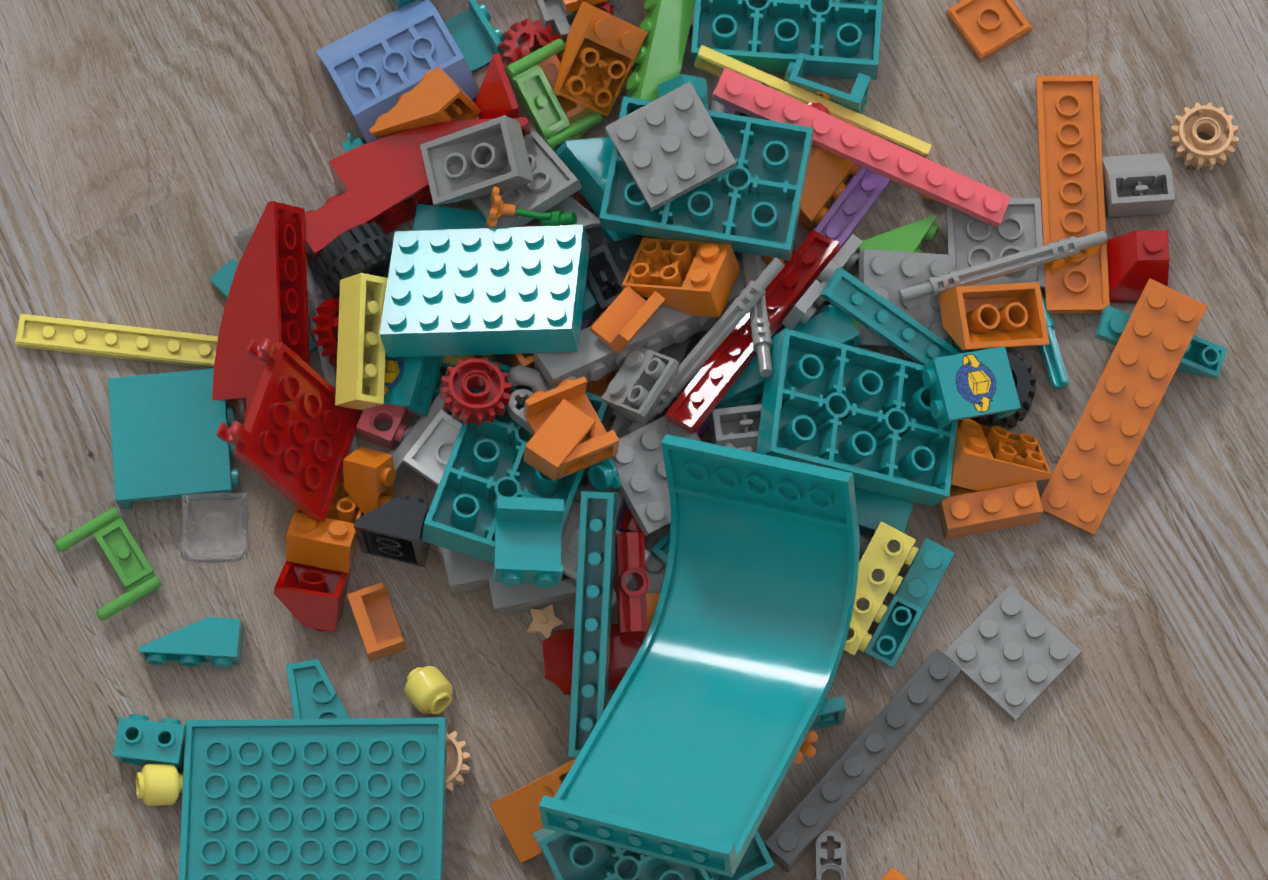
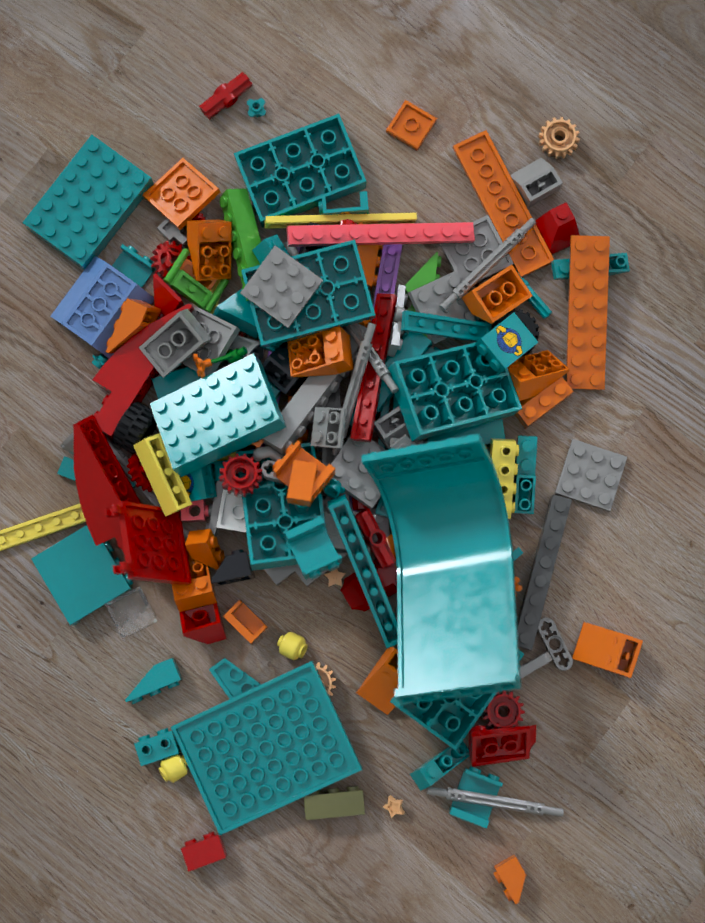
camera: 25 degrees left, 10 degrees up
(123, 555) = (88, 651): bright green plate -> none
(625, 318) = (303, 395): orange panel -> none

